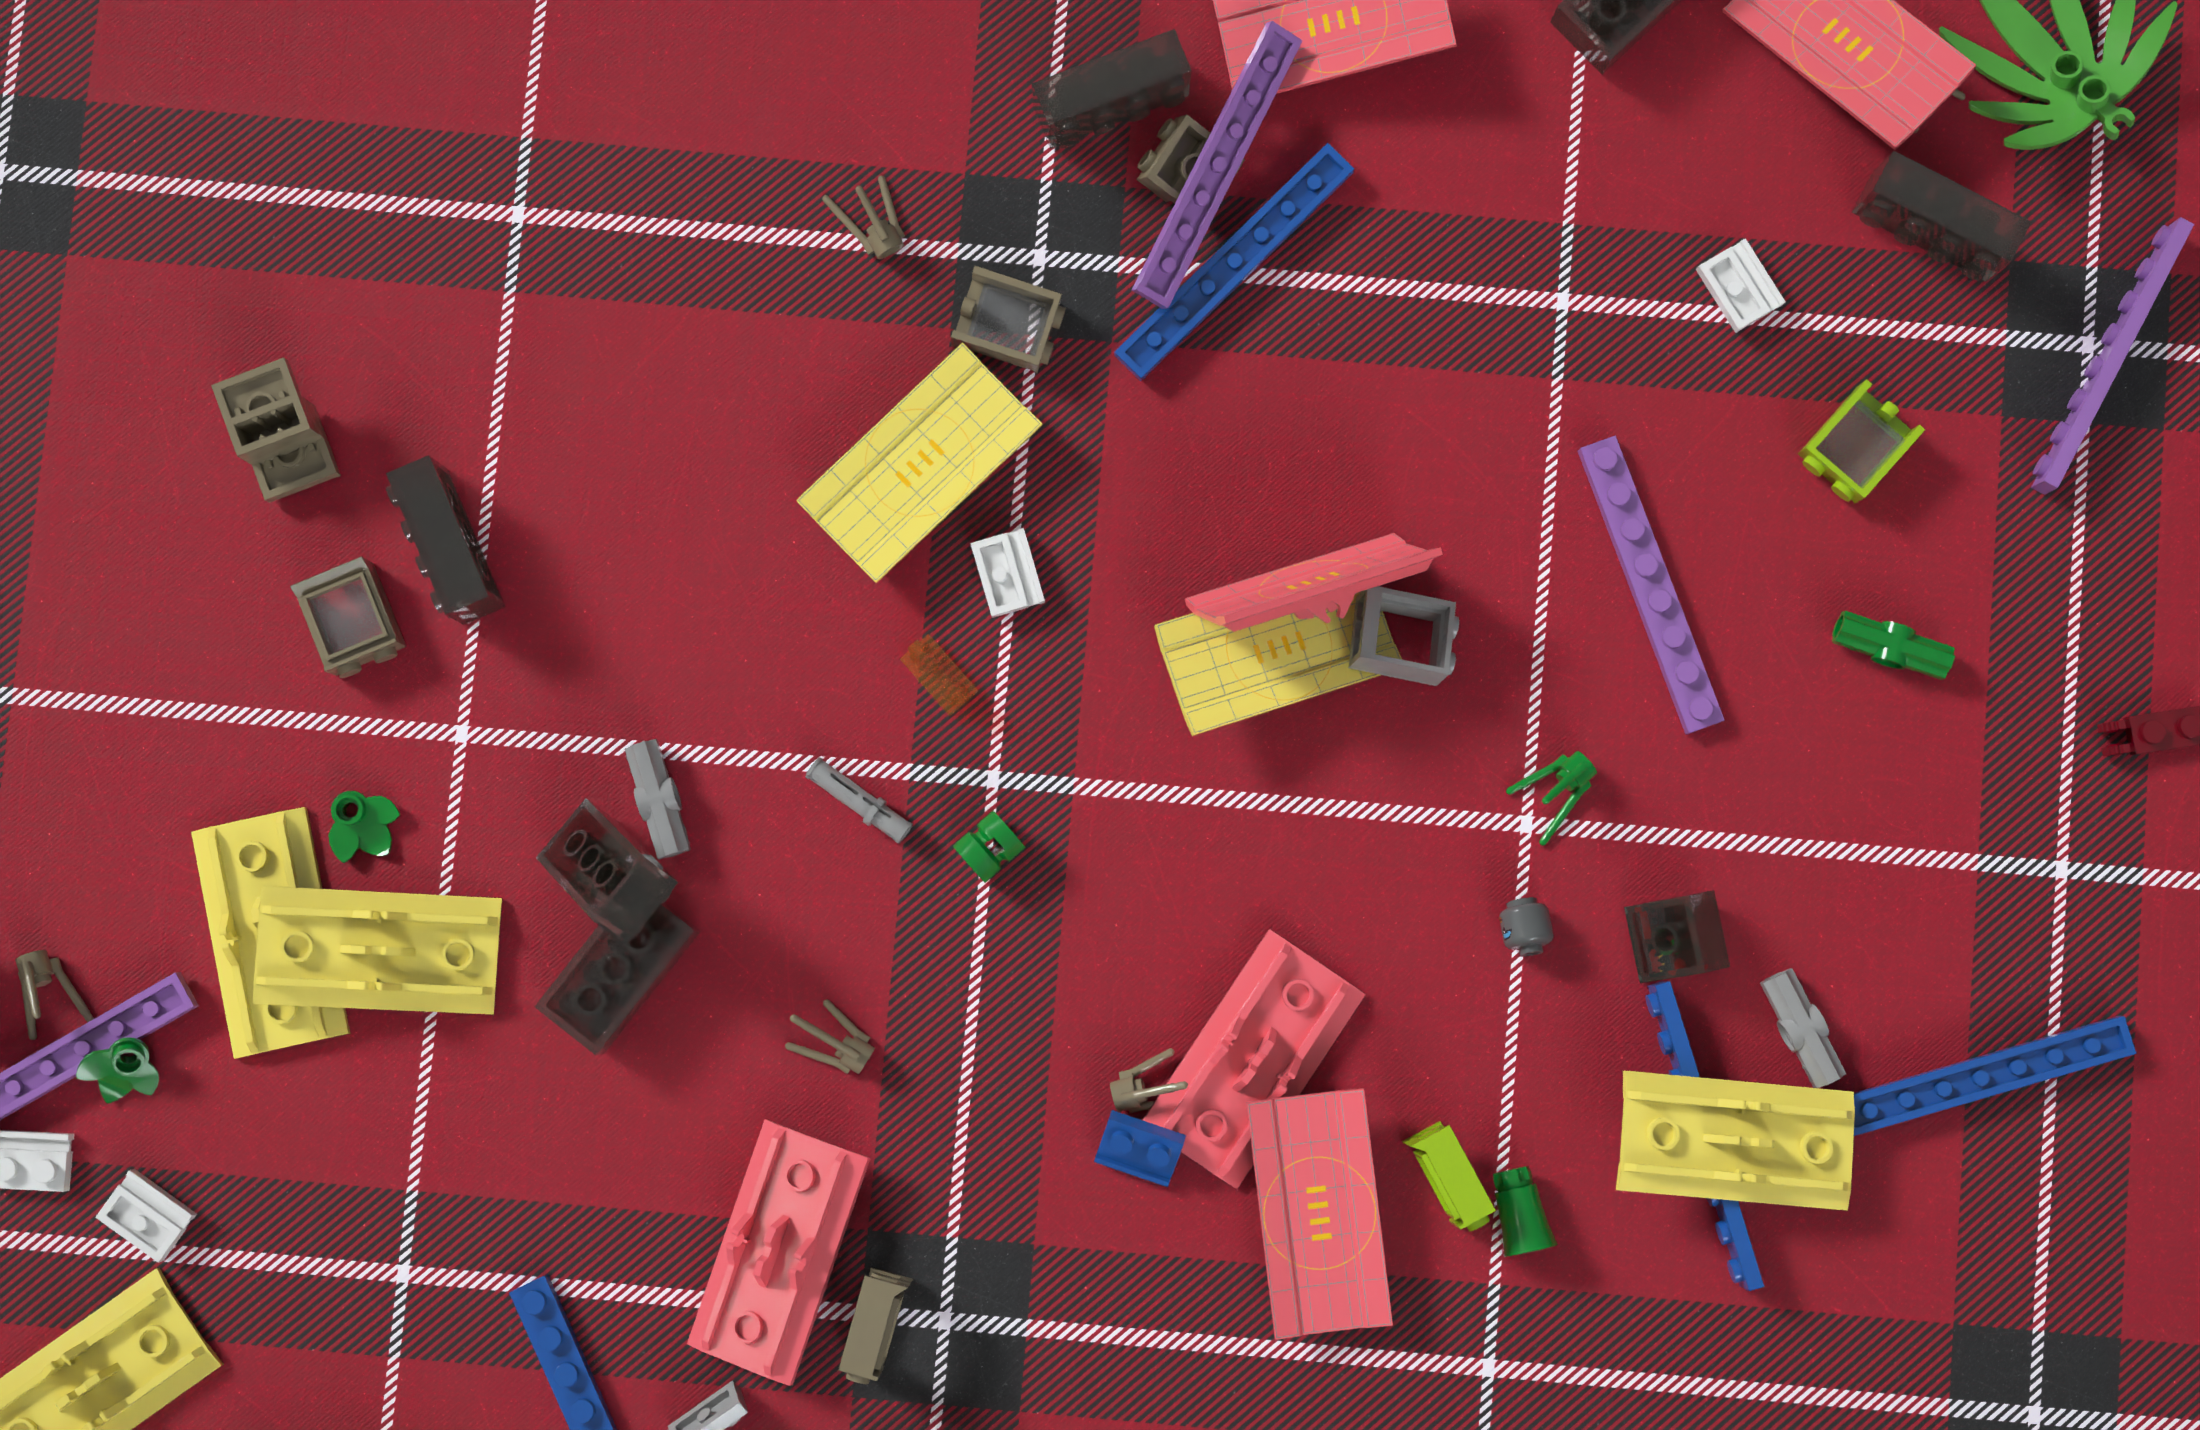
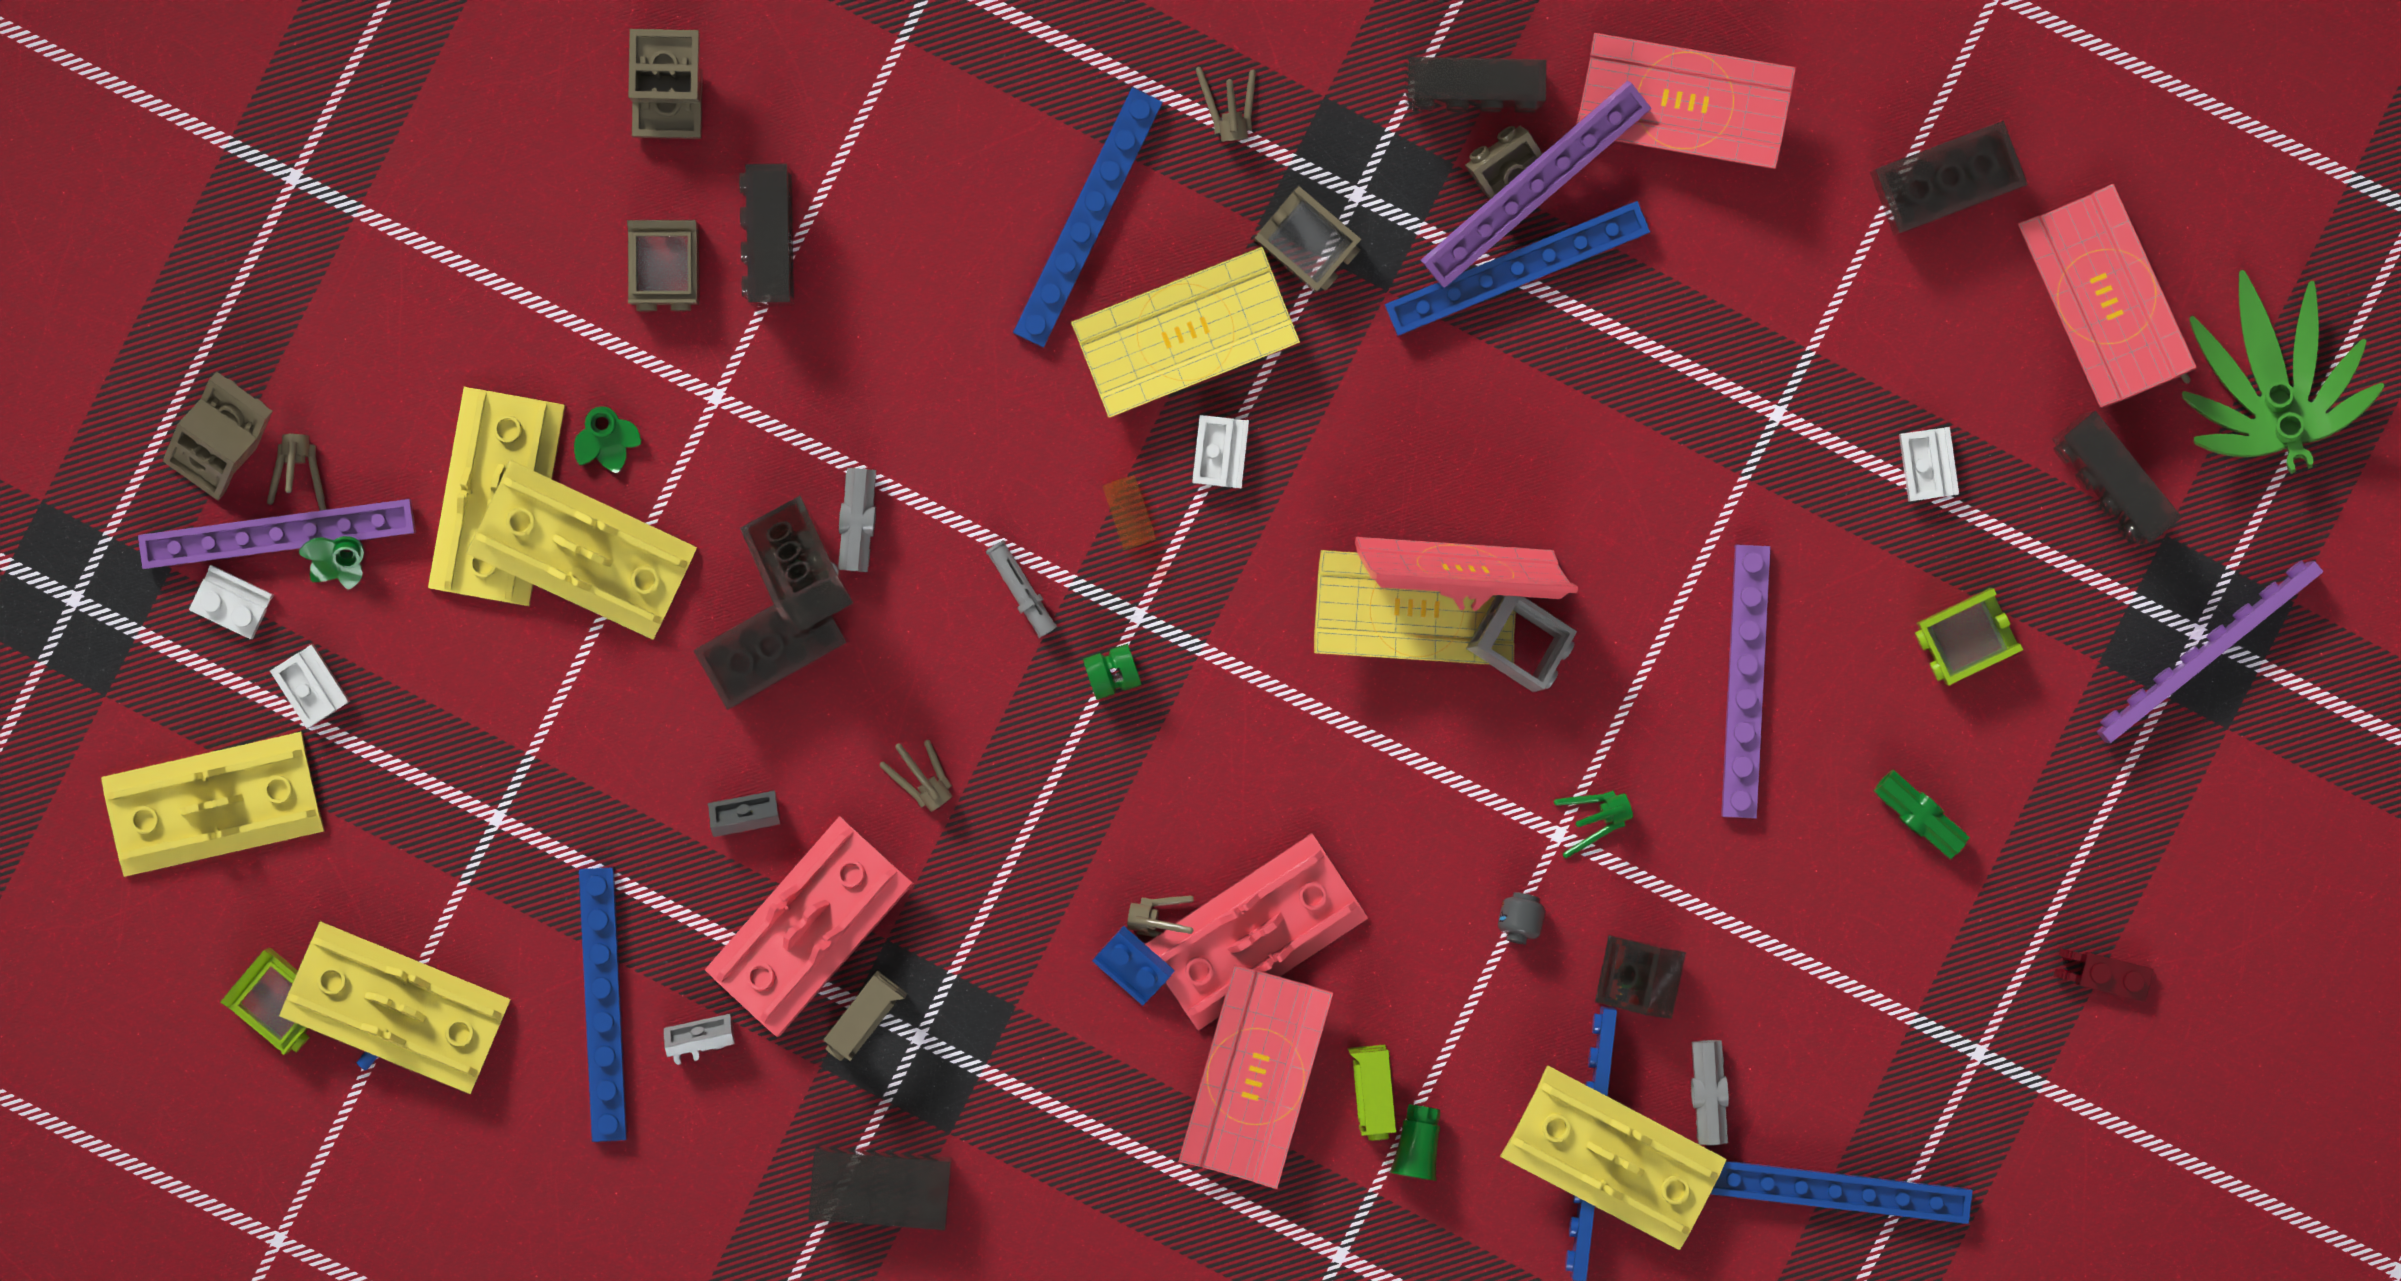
camera: 20 degrees right, 5 degrees up
(661, 1159) = (744, 813): none -> dark grey plate
(772, 392) = (1087, 217): none -> blue plate

